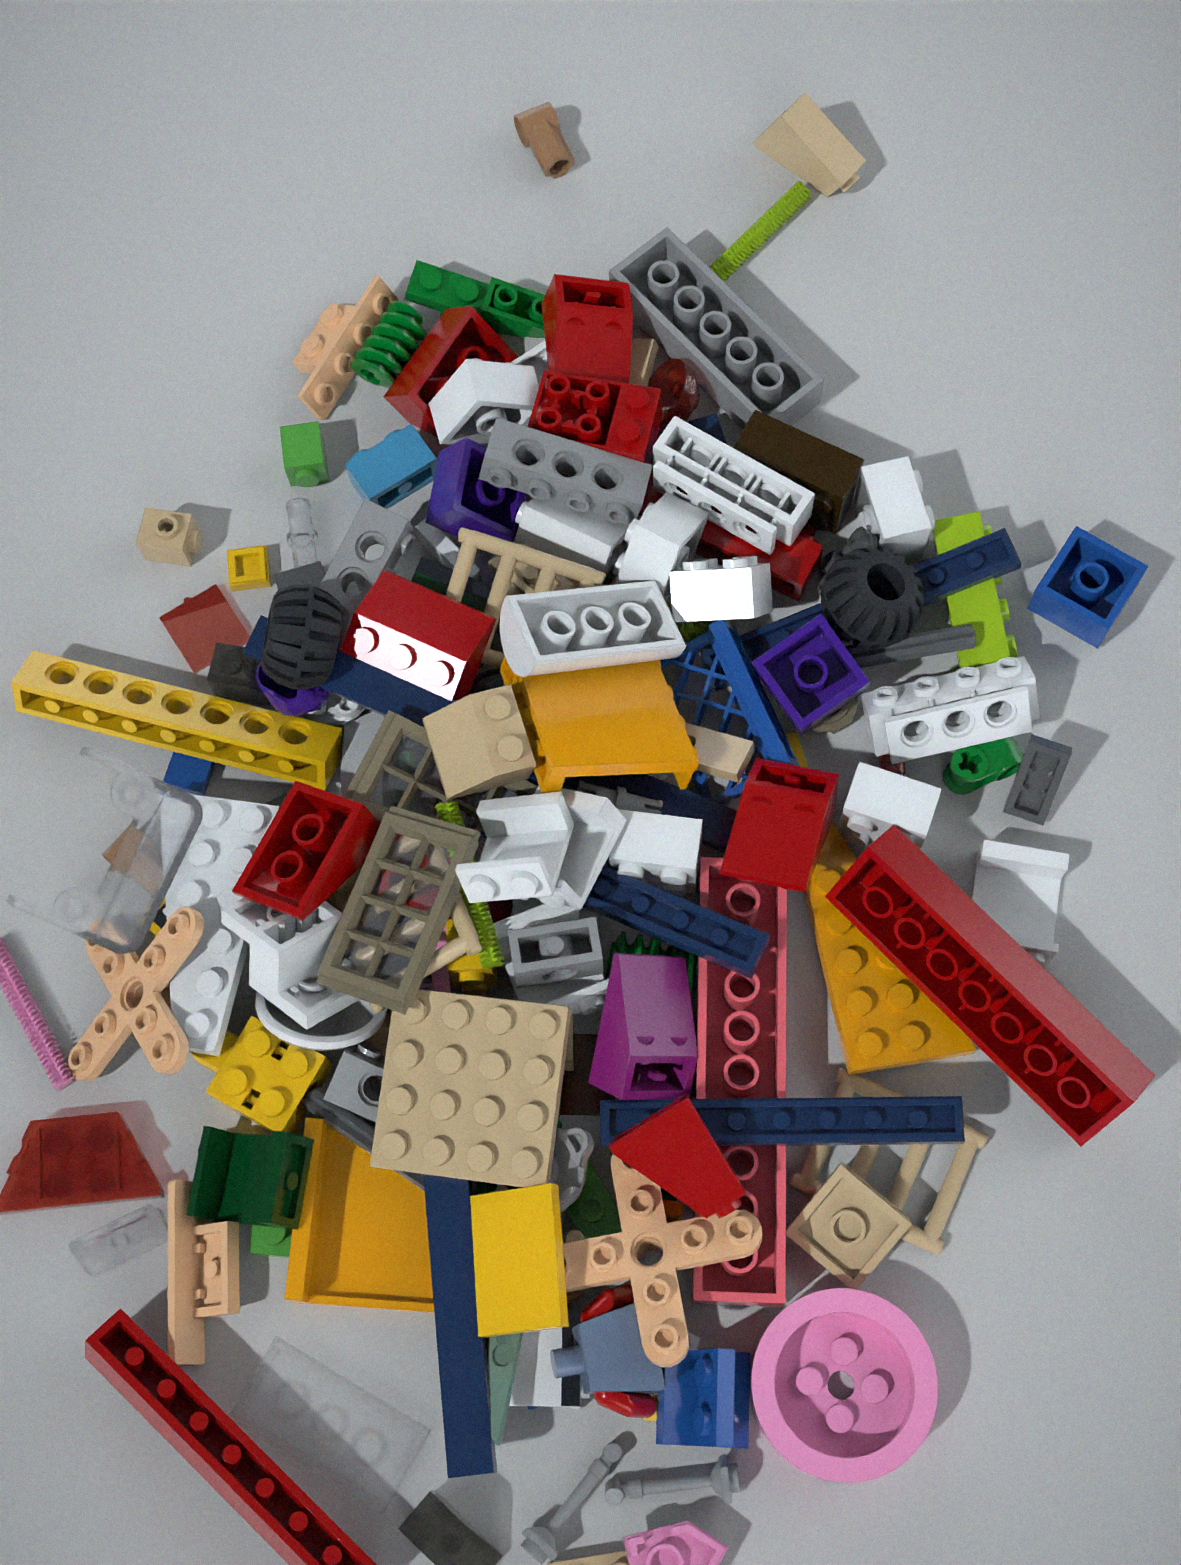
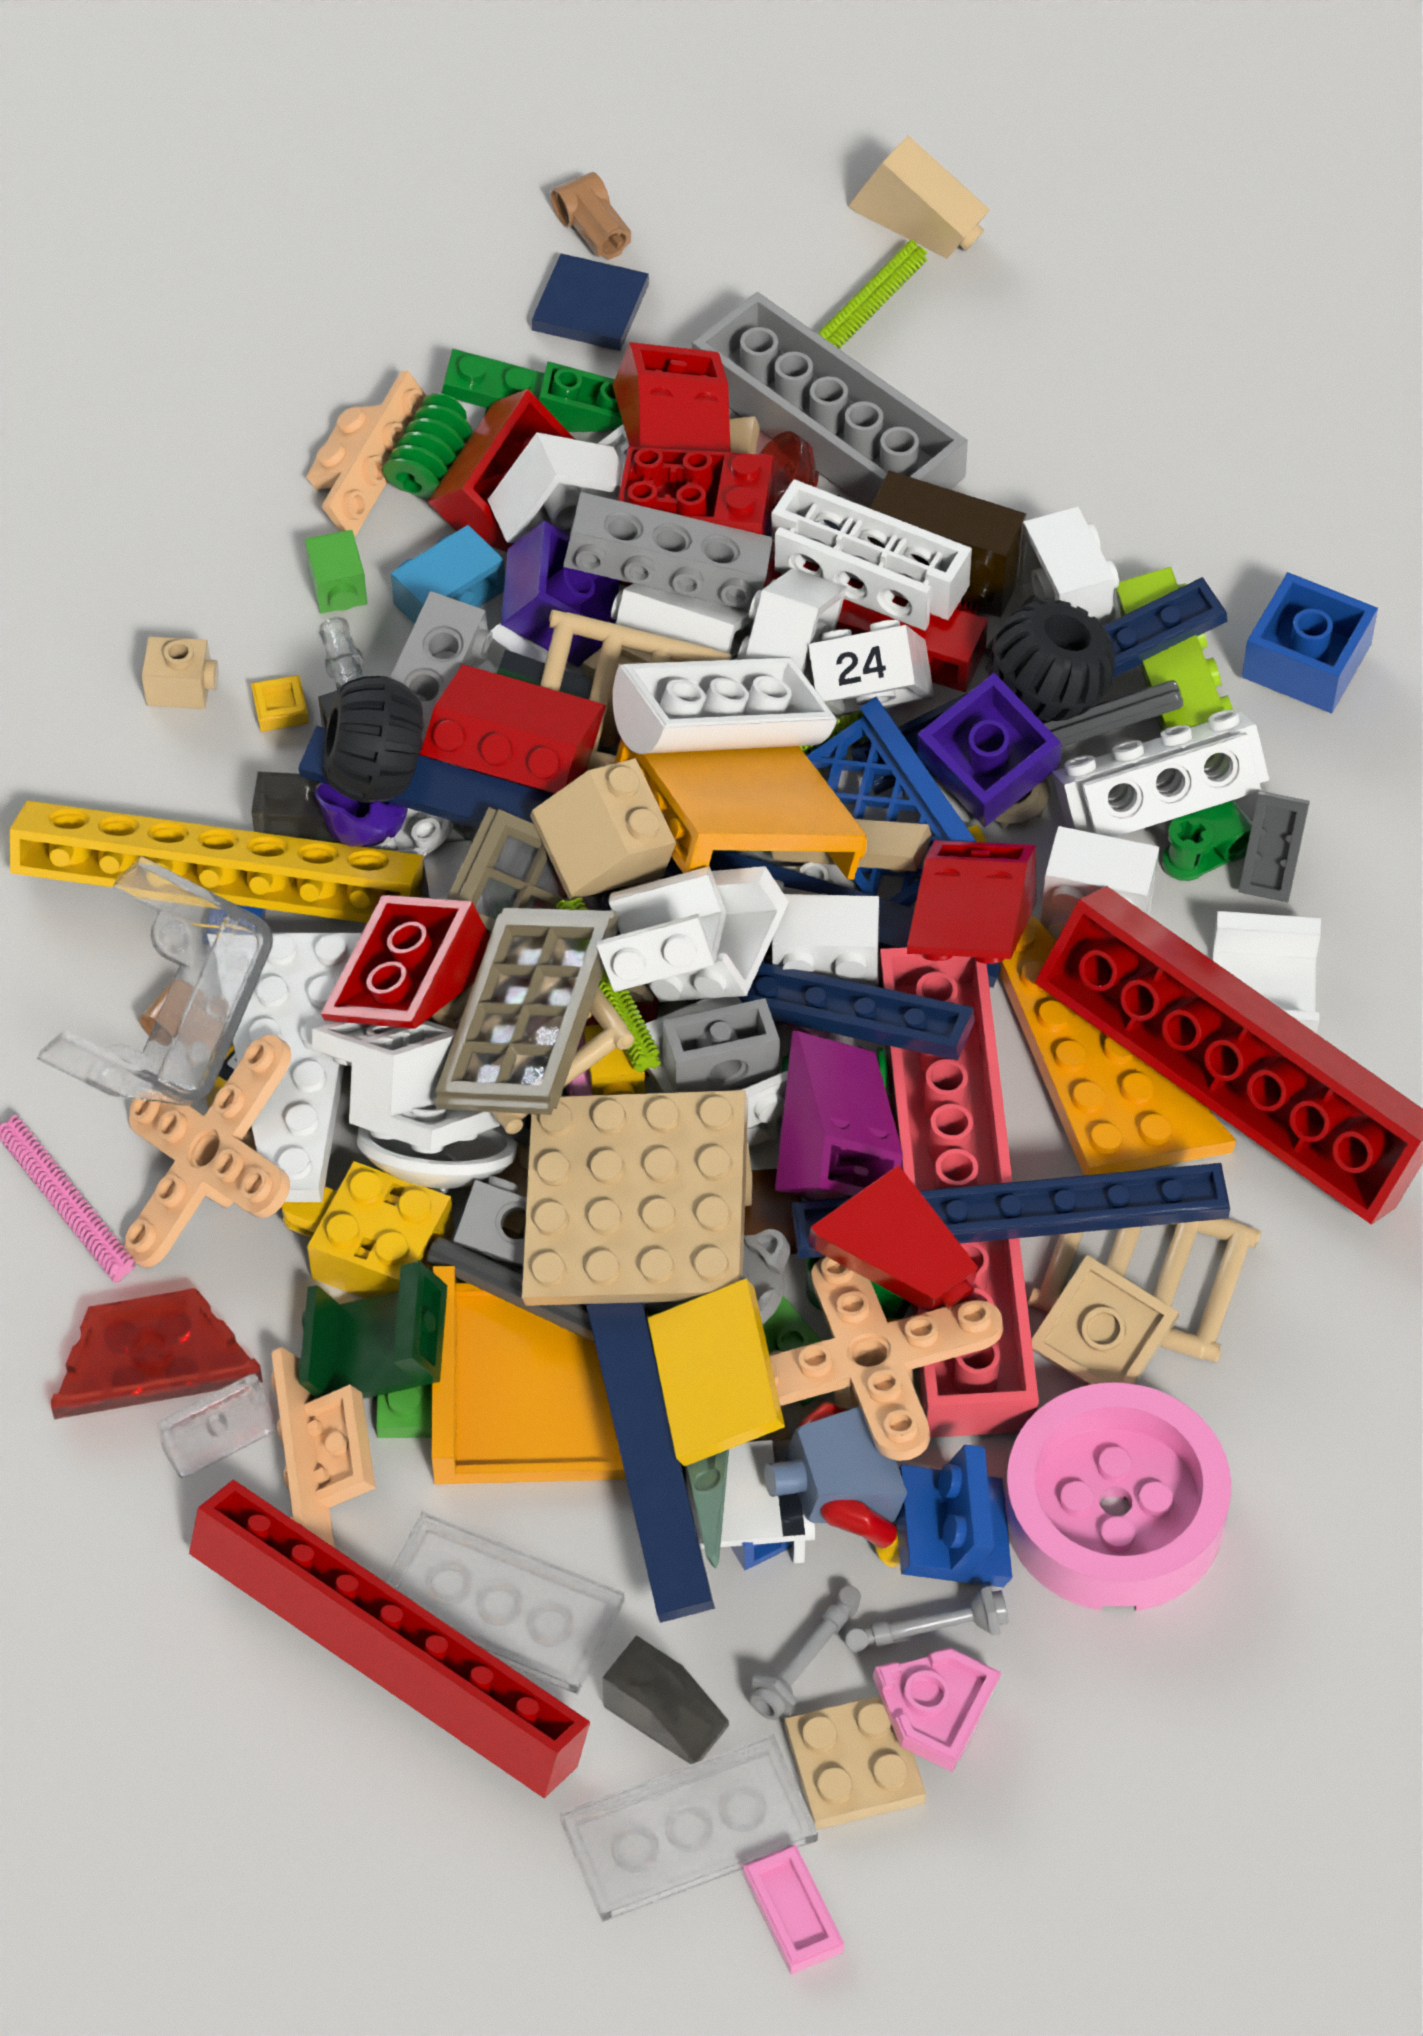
camera: 10 degrees left, 15 degrees down
(202, 624) = (227, 770): clear red piece -> none
(535, 218) = (590, 302): none -> dark blue tile

